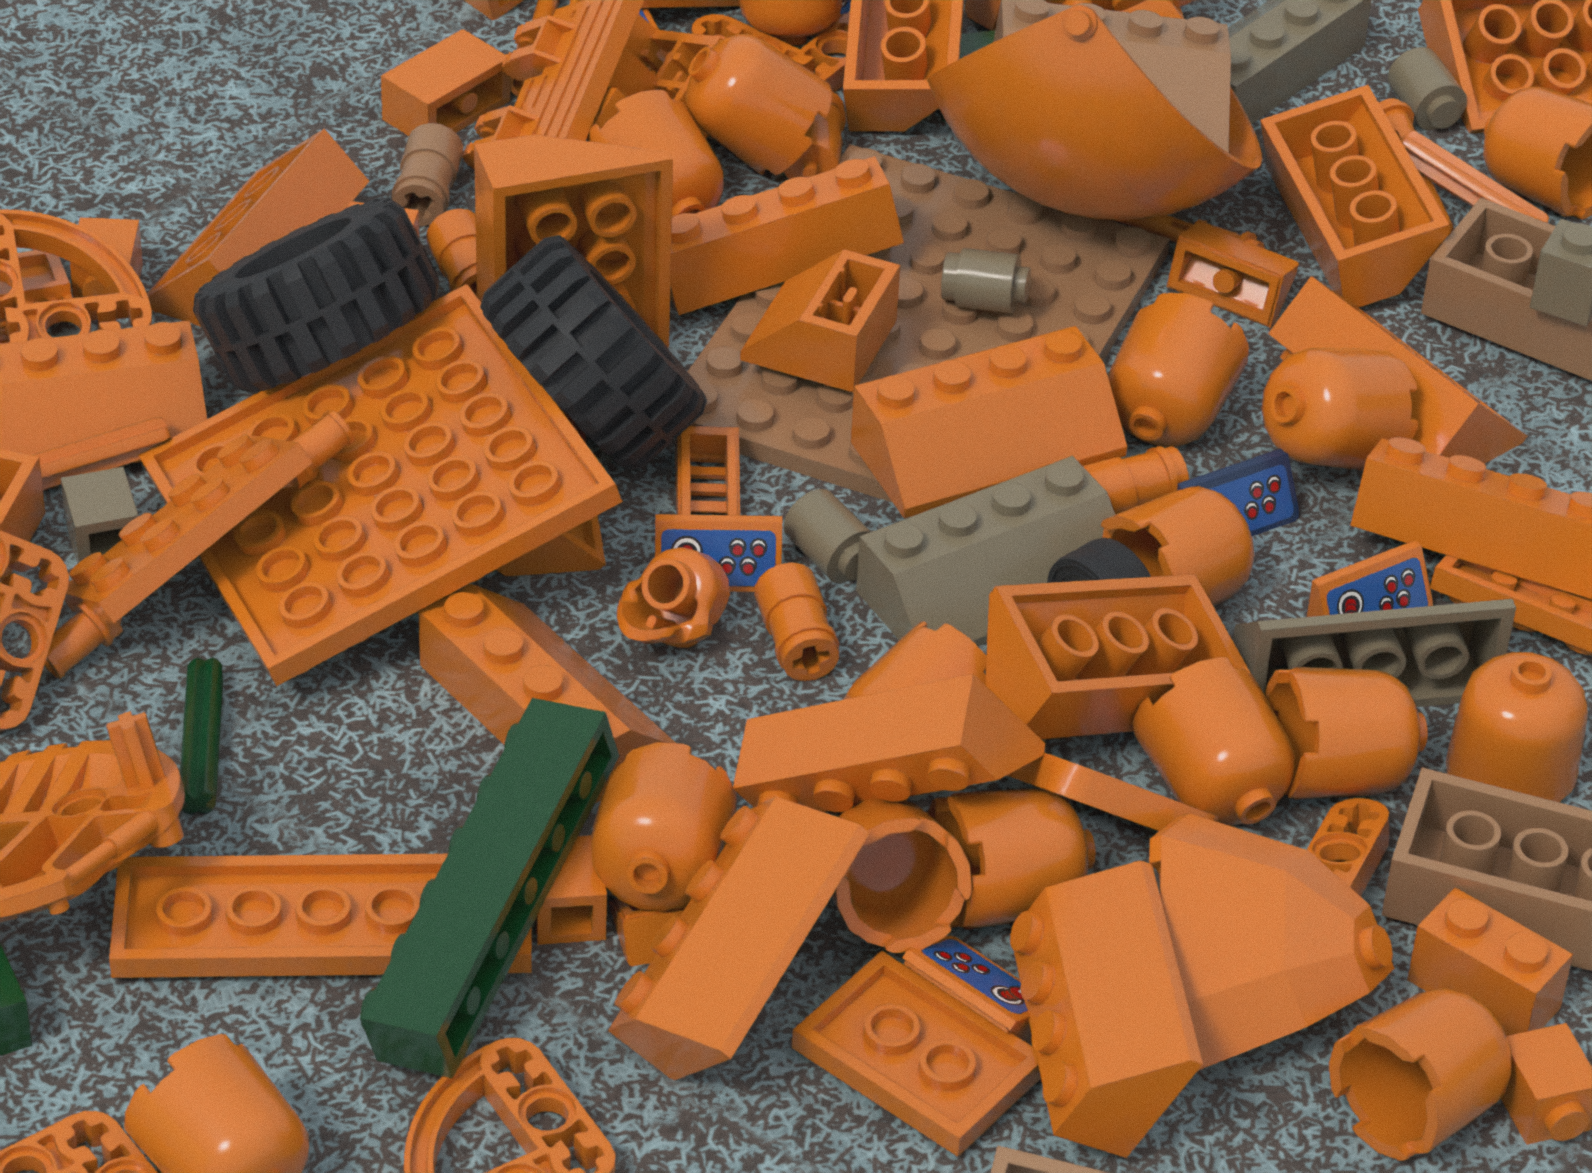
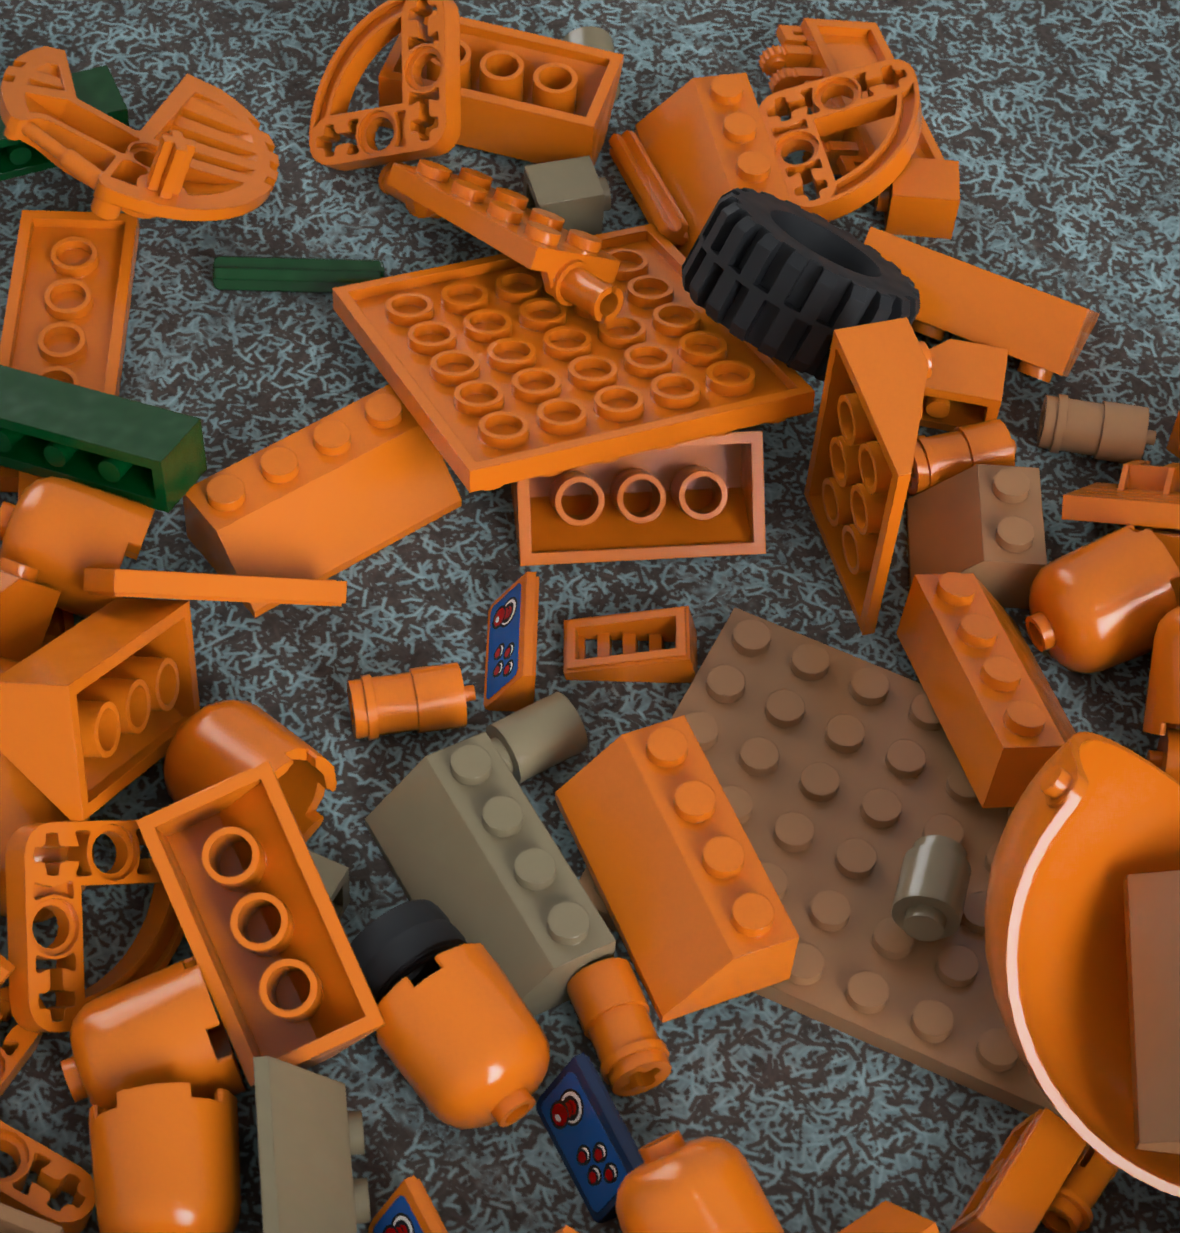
camera: 90 degrees right, 10 degrees up
(593, 353) = (785, 517): black tyre -> none
(674, 599) = (428, 595): orange head -> none
(713, 718) = (213, 587): none -> orange tile
(828, 320) = (828, 729): orange slope -> none
(1176, 370) = (783, 1073): orange cylinder -> none

